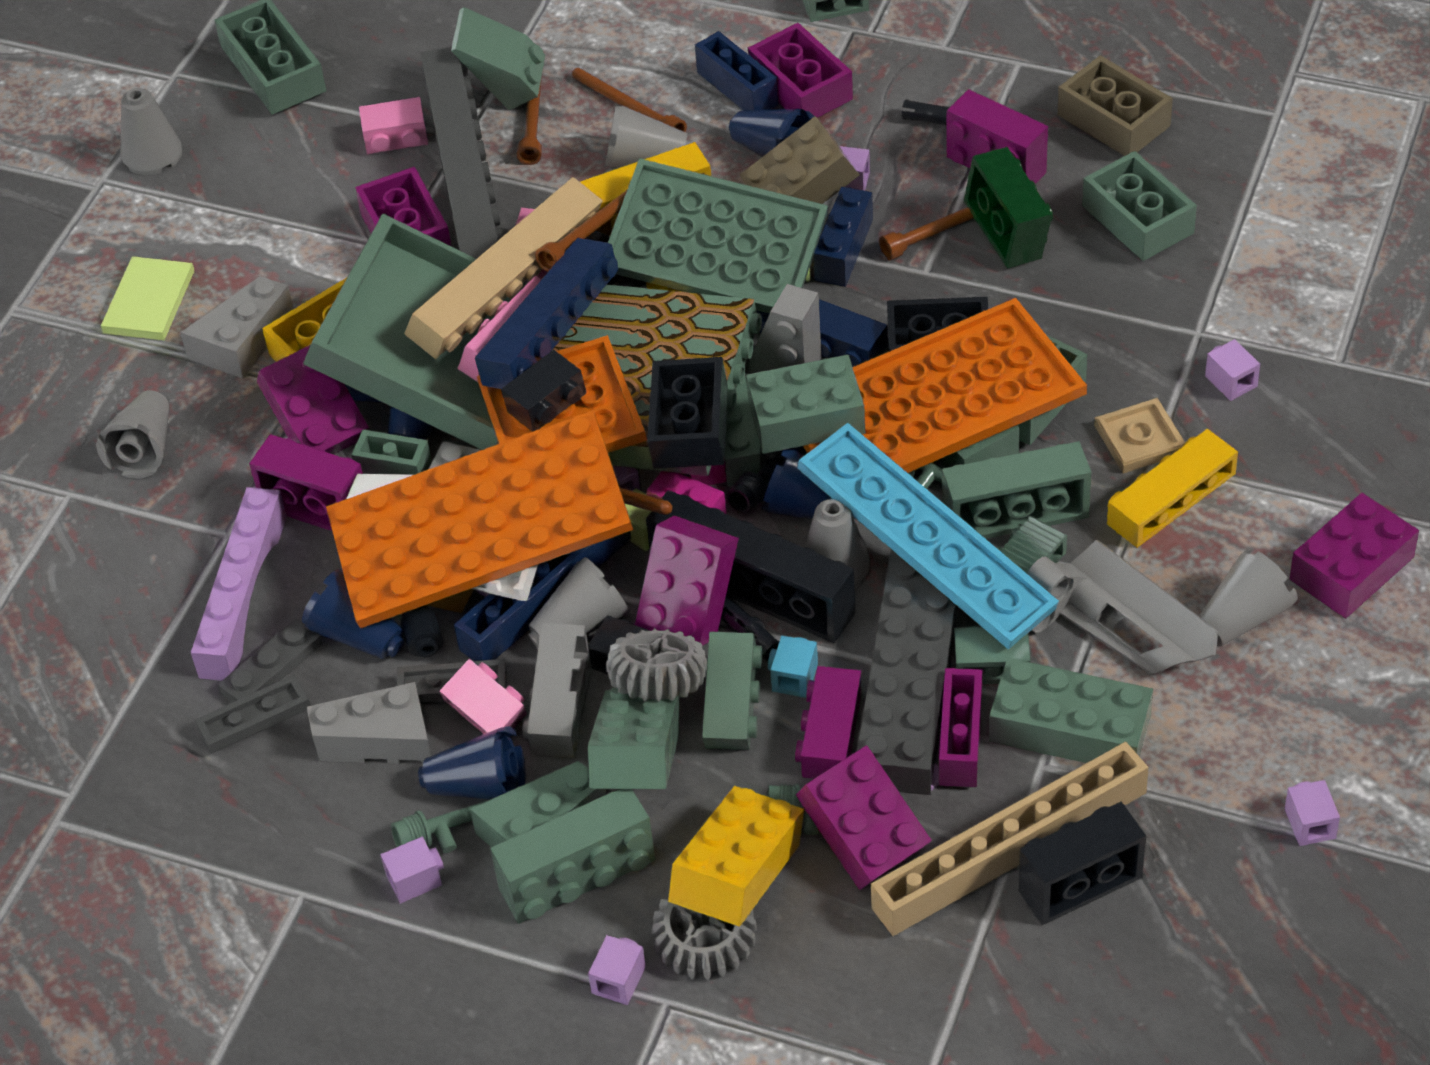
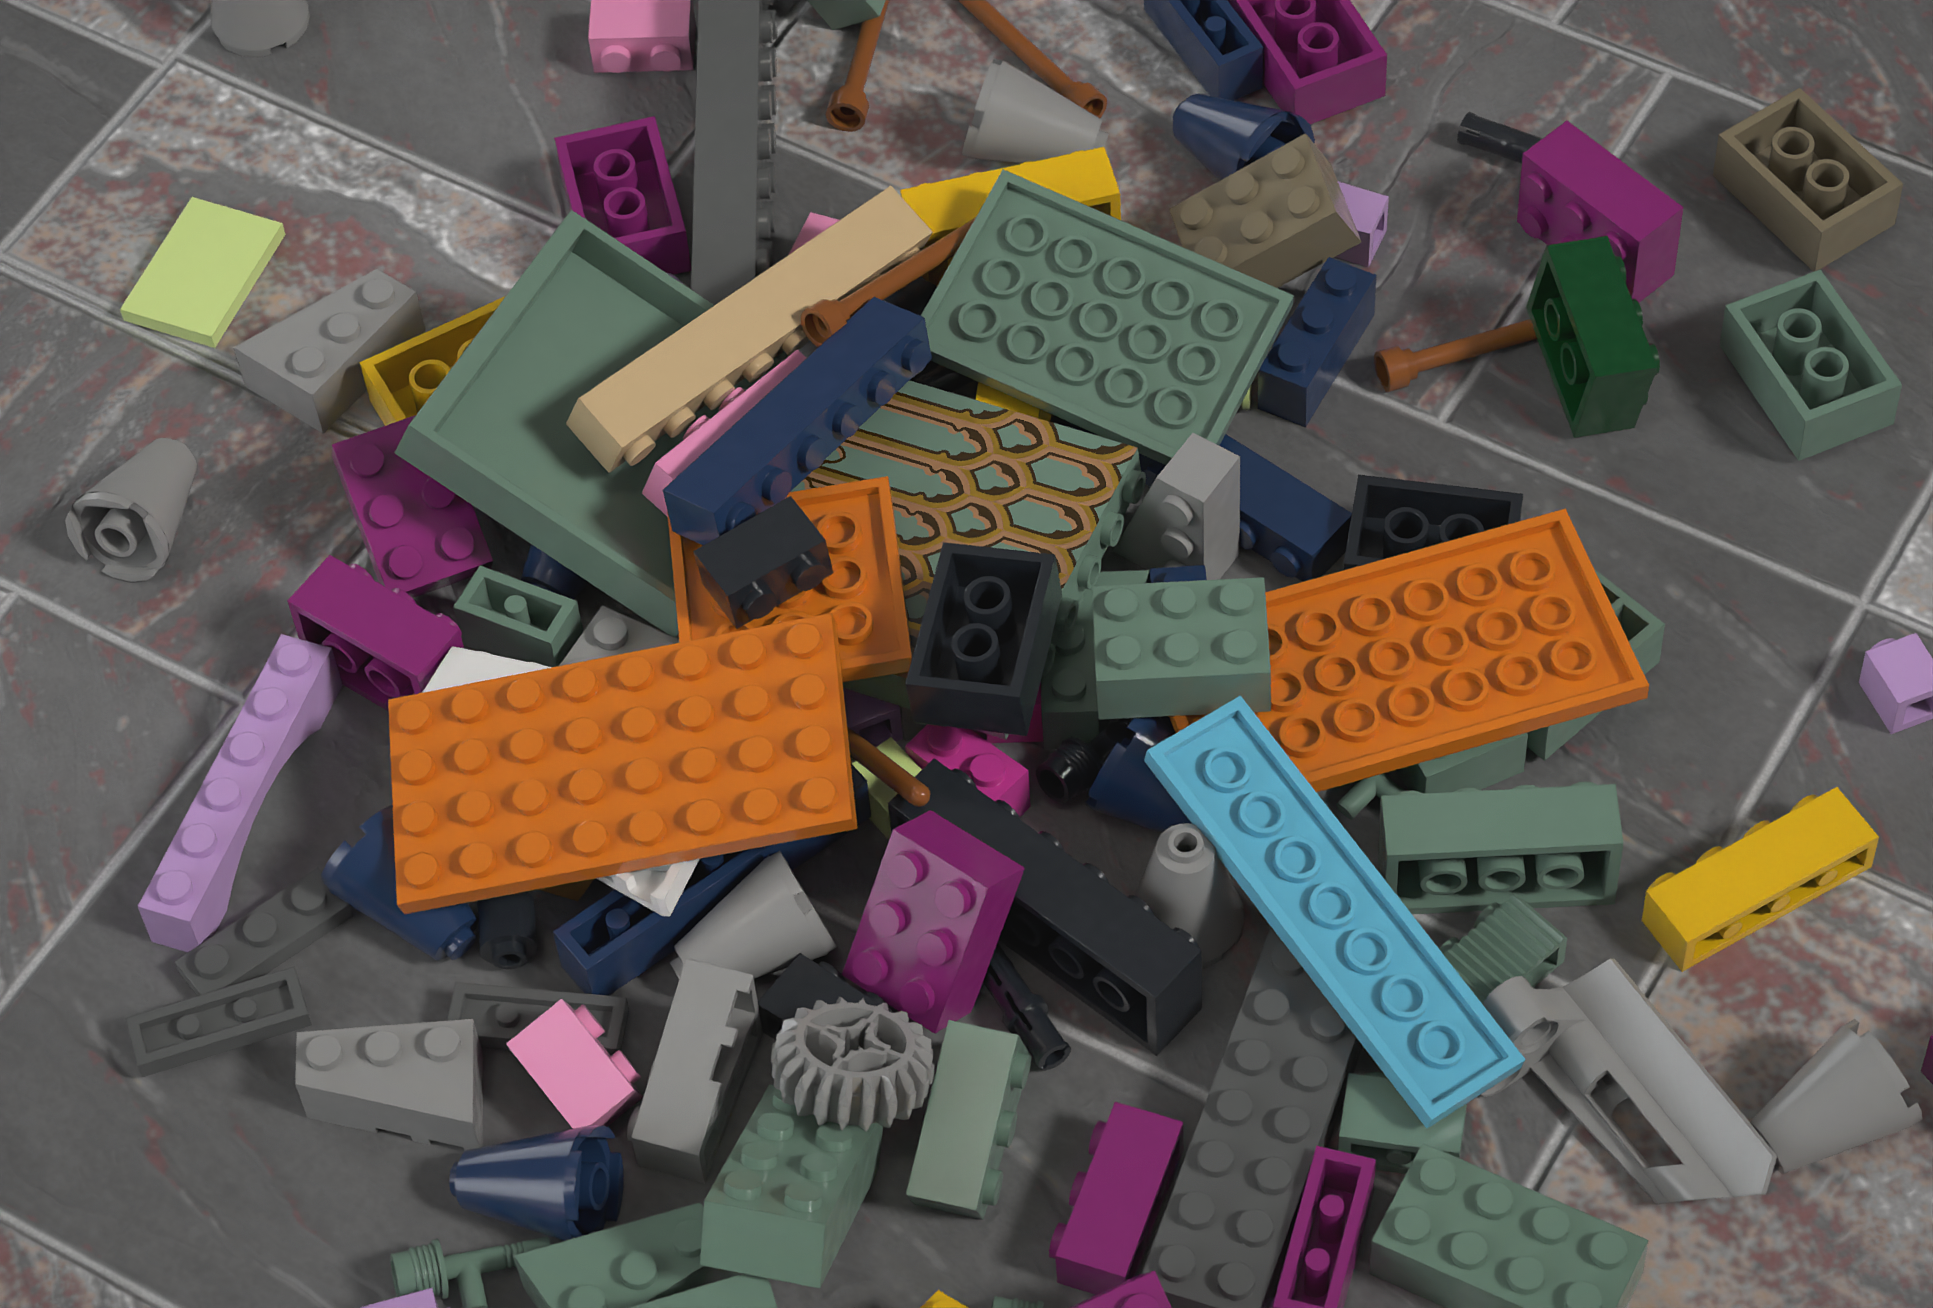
camera: 10 degrees right, 5 degrees up
(793, 665) = (1079, 1087): medium azure brick -> none
(1139, 435) = (1728, 772): tan tile -> none

